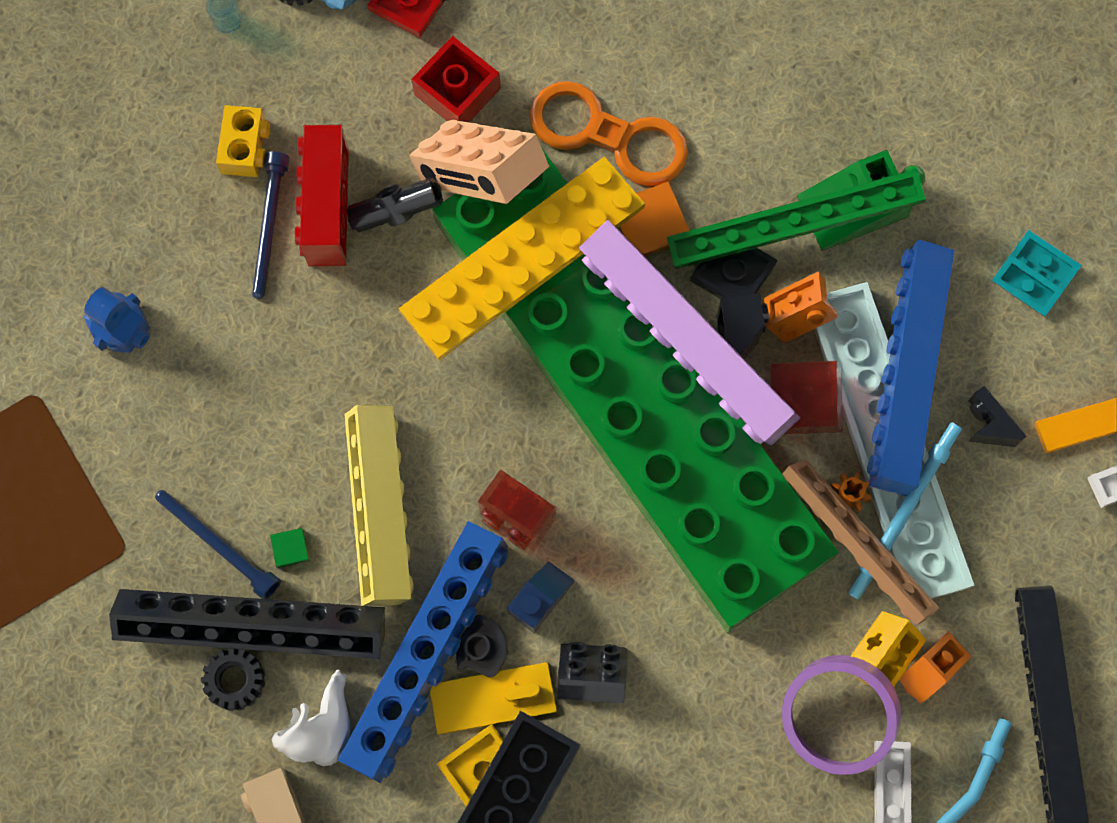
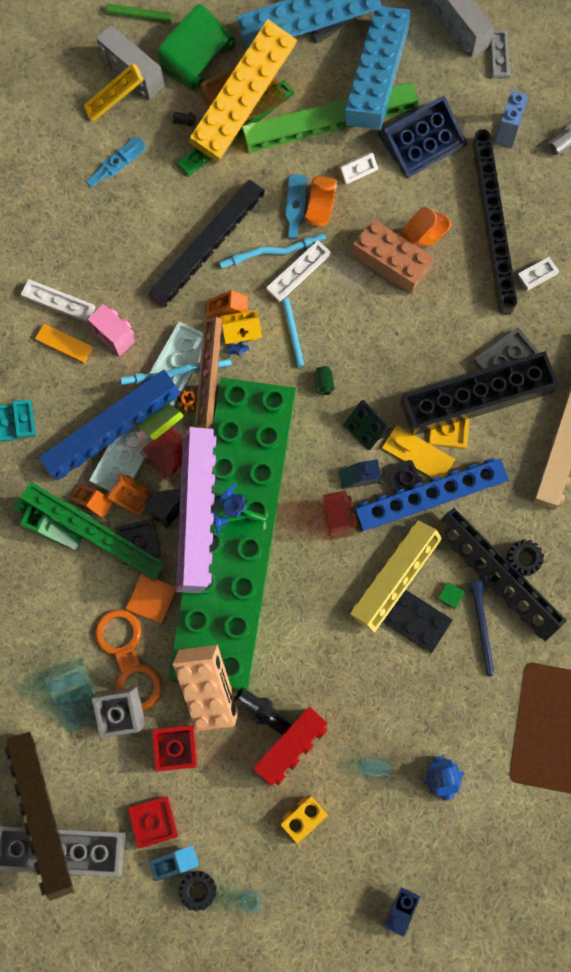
camera: 135 degrees left, 0 degrees up
(44, 137) = (401, 911): none -> dark blue slope
(206, 265) = (376, 768): none -> clear light blue brick
(276, 166) = (300, 789): dark blue piece -> none
(303, 479) = (418, 621): none -> black plate
(322, 736) = (506, 500): white piece -> none
(519, 259) = (231, 621): yellow plate -> none
(557, 61) = (118, 712): none -> light grey brick
(631, 43) = (73, 694): none -> clear light blue slope
(645, 377) = (234, 506): none -> blue plant
(706, 682) = (324, 380): none -> dark green brick
(816, 717) = (293, 333): none -> medium azure bar
(840, 261) = (91, 500): none -> orange slope
(852, 420) = (160, 421): none -> lime tile
(860, 621) = (238, 348): none -> blue piece
(873, 677) = (266, 330): medium lavender piece -> none
(1000, 426) = (100, 373): black slope -> none
(1043, 487) = (111, 329): none -> bright pink brick

